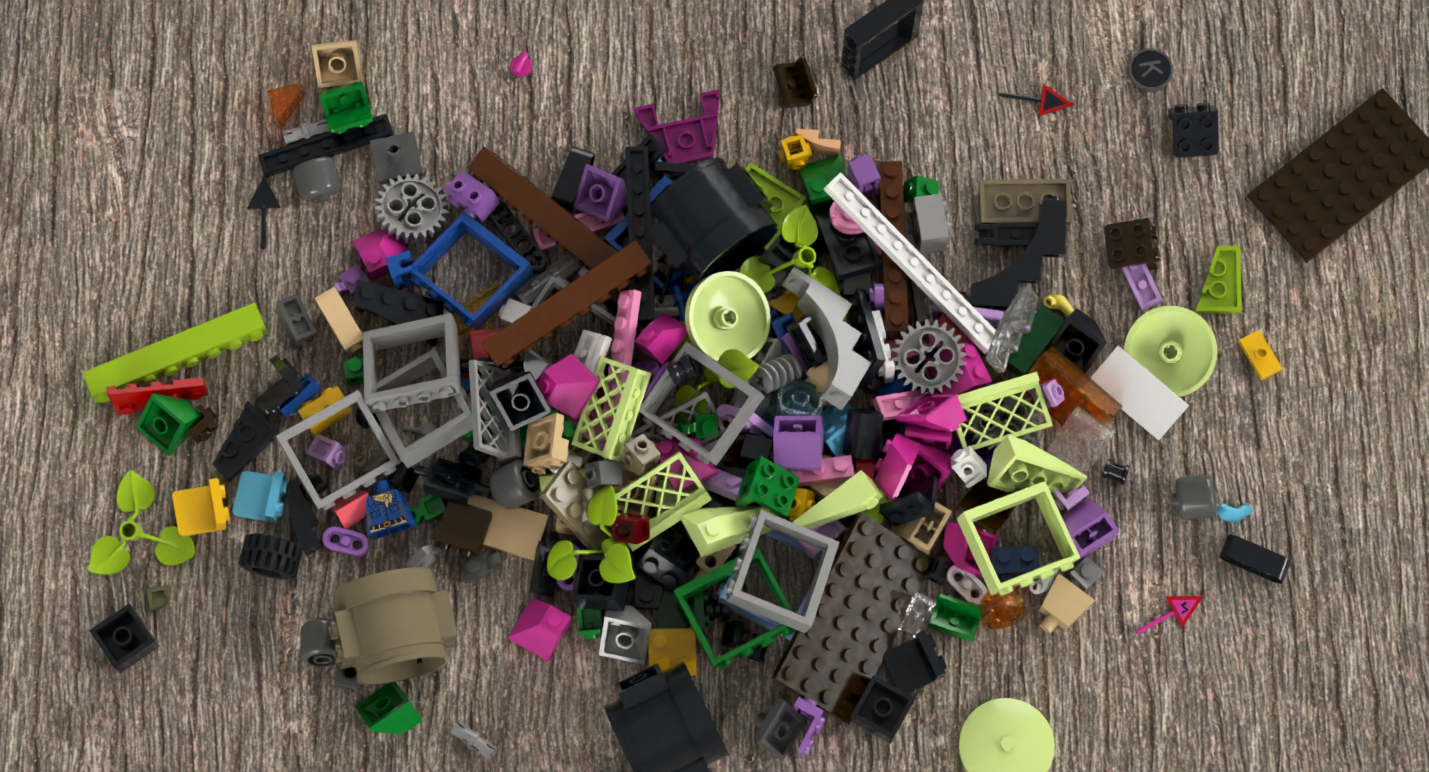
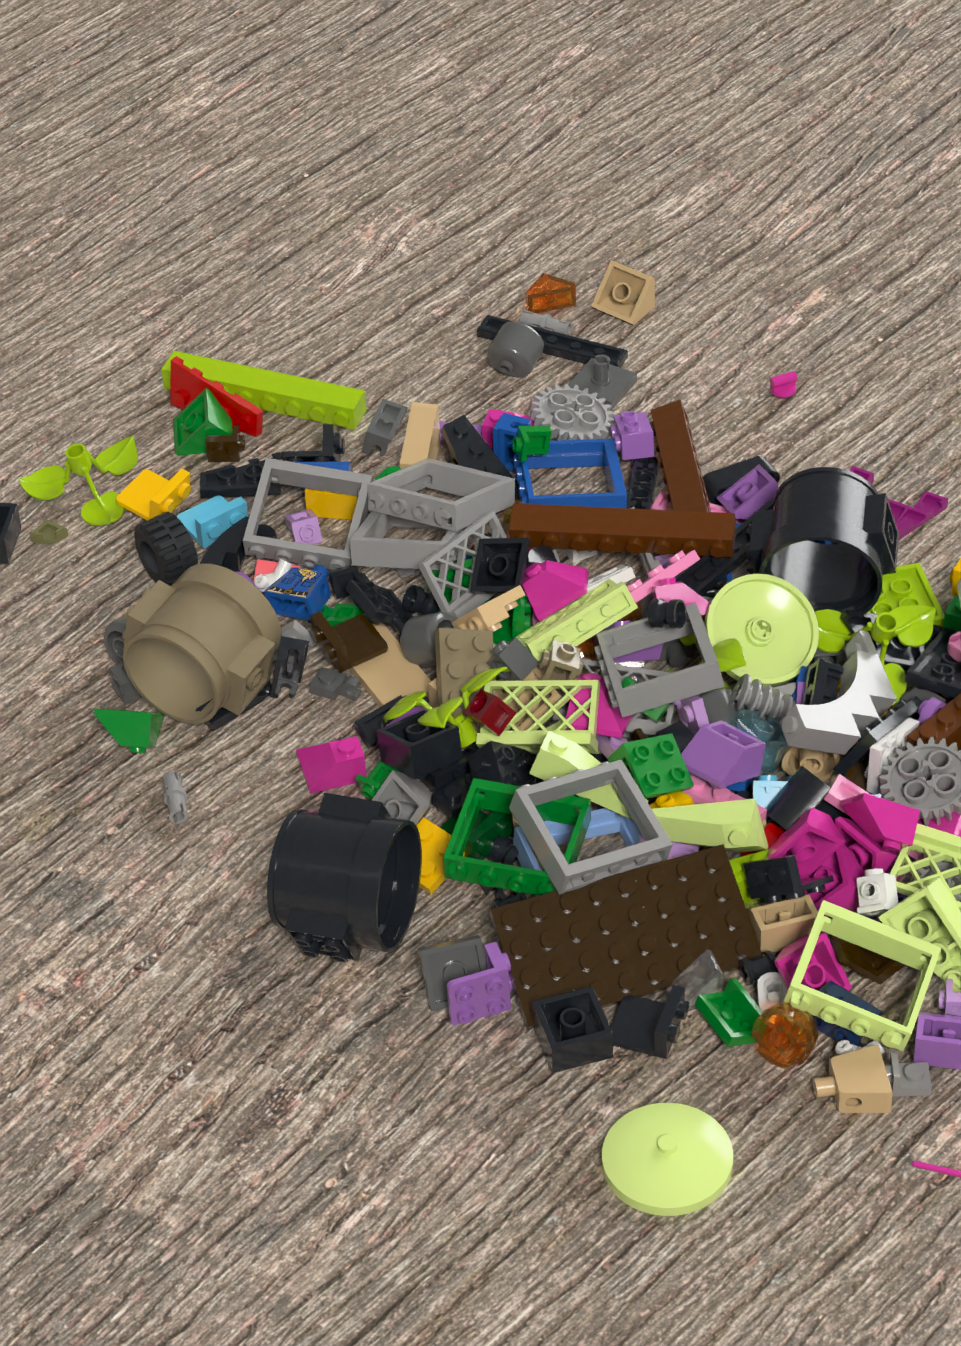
camera: 45 degrees right, 30 degrees down
(263, 200) = (459, 347): black piece -> none
(346, 107) = (598, 321): green bracket -> none
(359, 517) = (262, 581): none -> white arm
(423, 266) = (531, 441): none -> green bracket
(447, 579) = (289, 665): none -> black hinge

